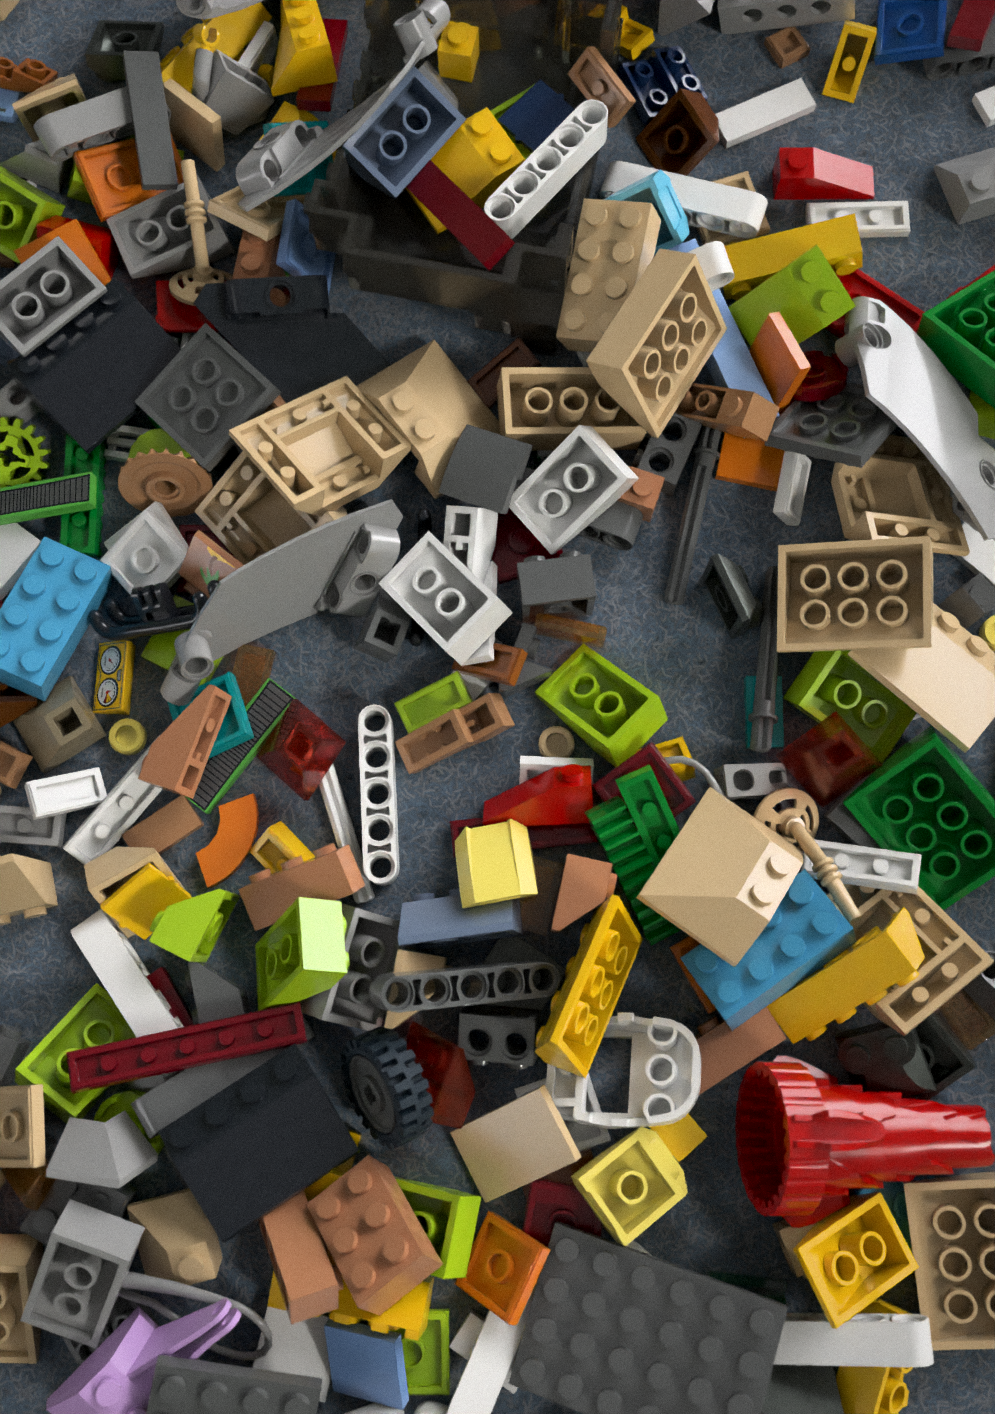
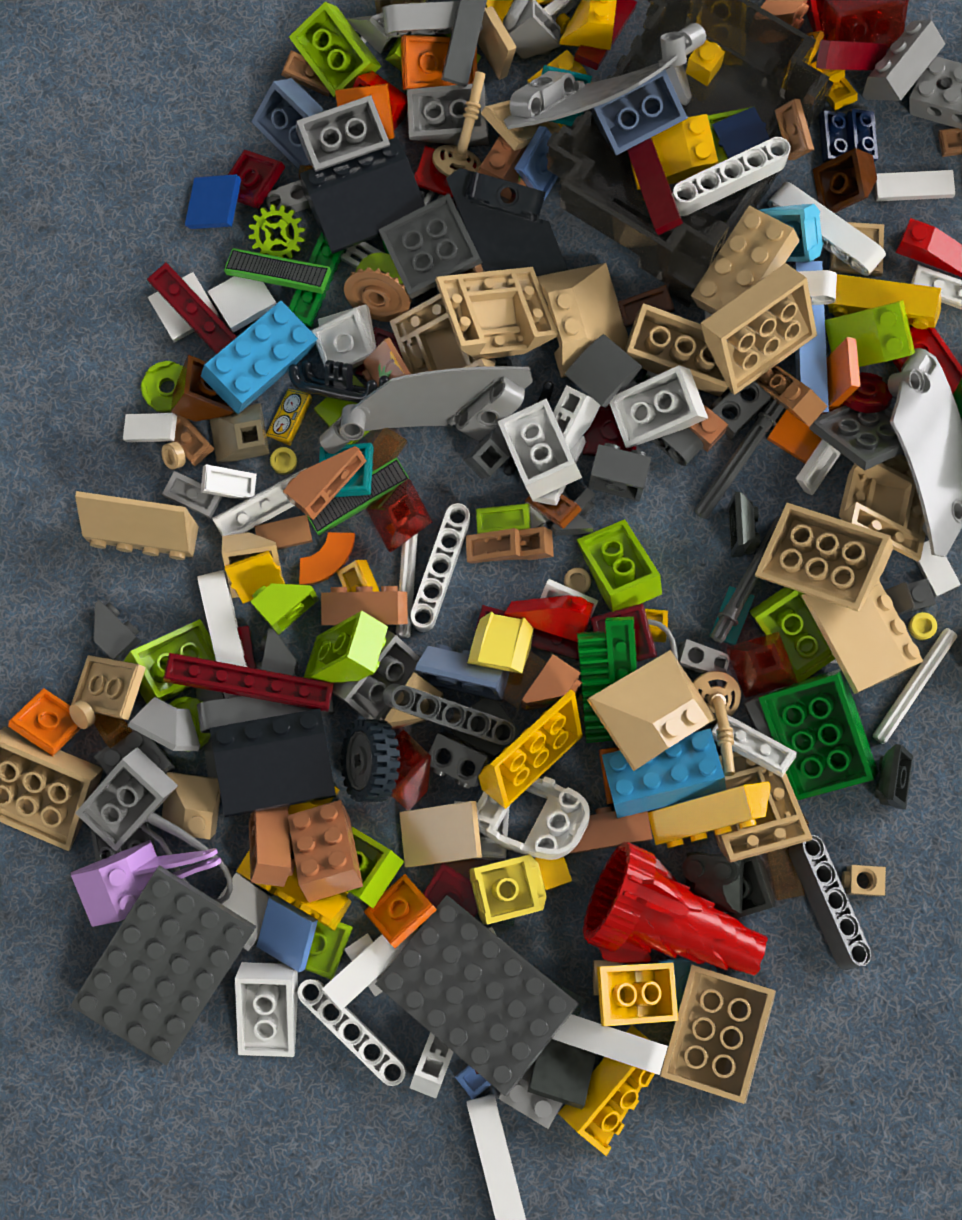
camera: 20 degrees right, 0 degrees up
(570, 630) = (619, 506): clear orange tile -> none

